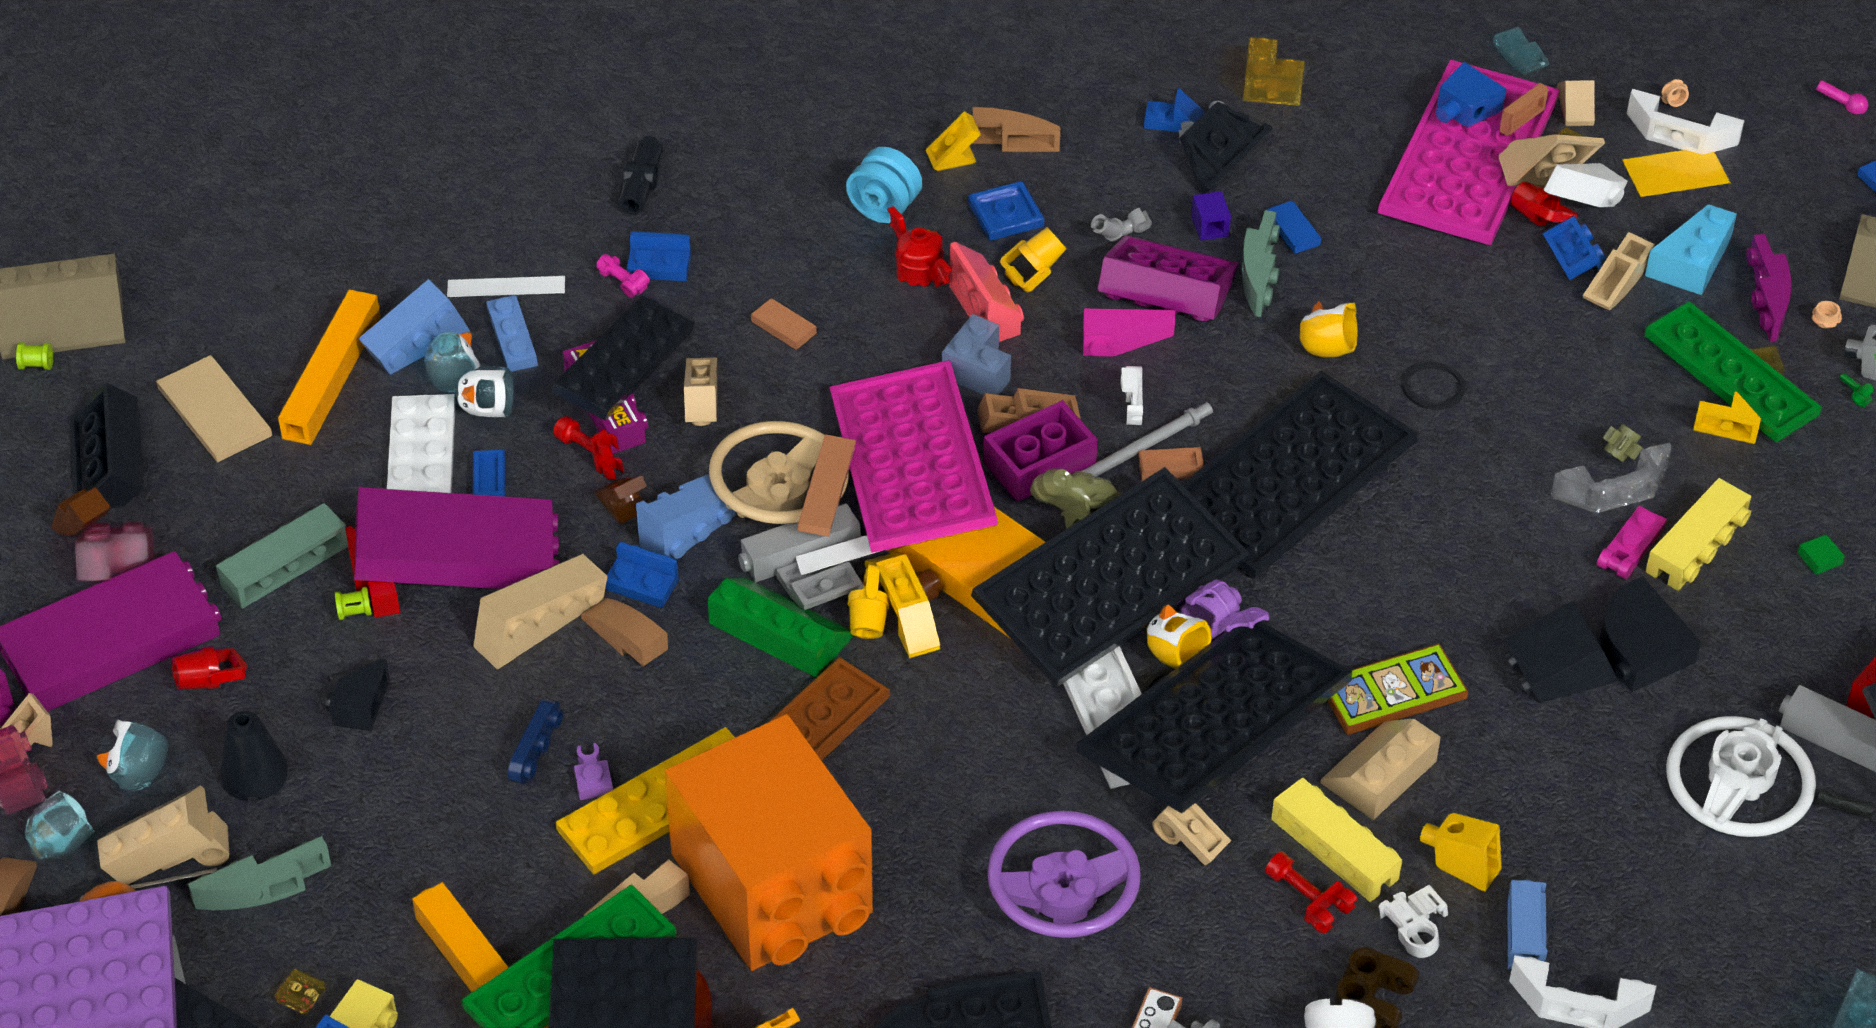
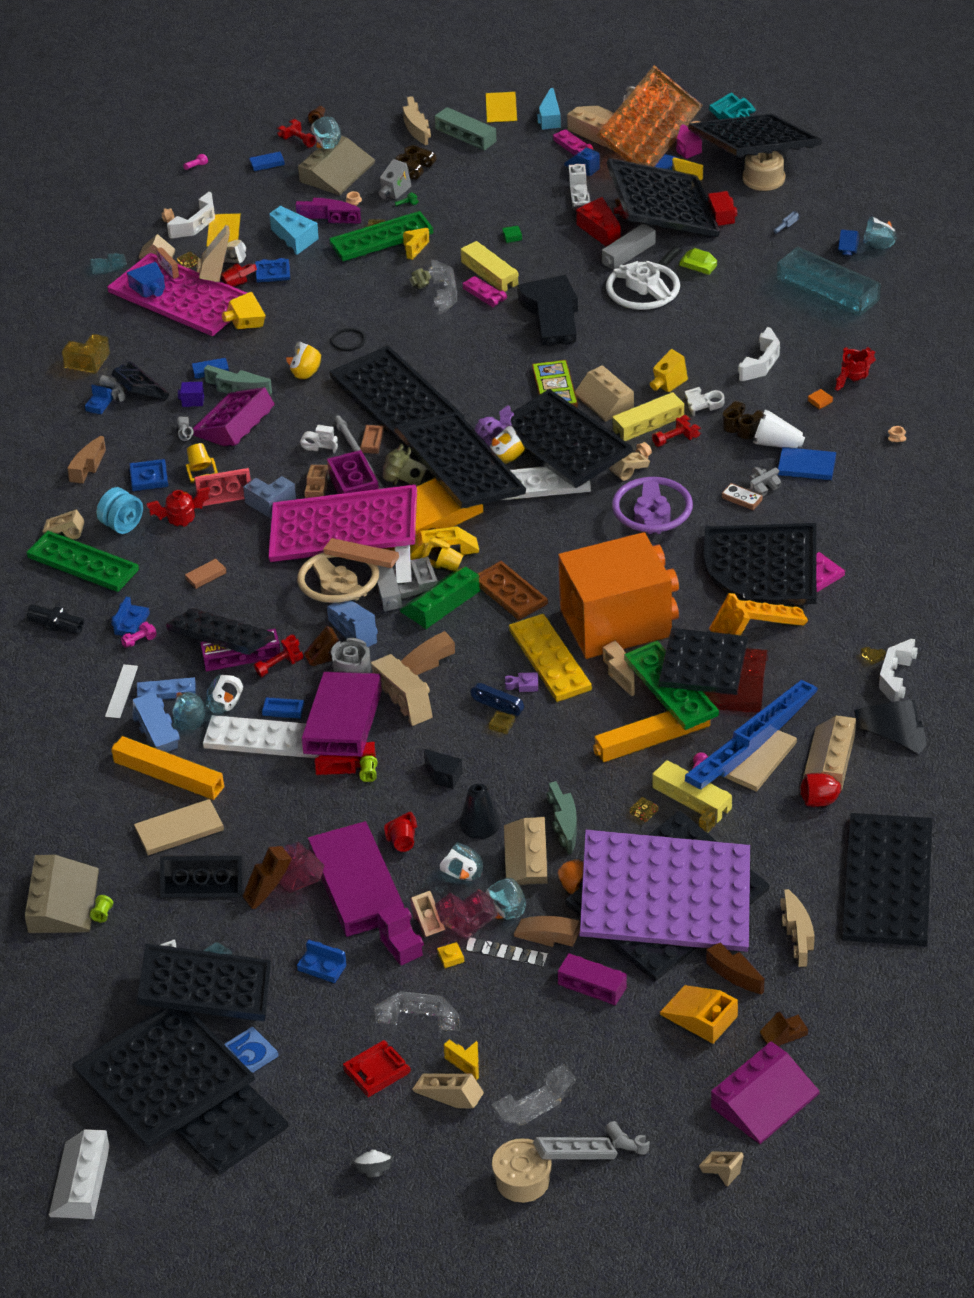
camera: 75 degrees left, 5 degrees down
(172, 878) = (552, 868): white sticker -> none
(282, 555) = (319, 796): sand green brick -> none
(489, 760) = (502, 722): none -> clear yellow tile
(592, 528) = (351, 656): none -> light grey brick
(642, 575) = (386, 644): blue bracket -> none
(700, 391) = (251, 608): tan slope -> none
(778, 178) = (83, 561): none -> green plate
(852, 140) = (68, 523): none -> tan plate
(953, 145) = (89, 482): yellow slope -> none
(1122, 330) = (267, 443): dark pink slope -> none
(1240, 847) = (644, 449): none -> light nougat plate
(1434, 230) = (244, 312): none -> yellow torso
(1526, 920) = (716, 365): medium blue window -> none
(1619, 272) = (298, 258): tan slope -> none
(1844, 851) = (699, 261): none -> lime slope

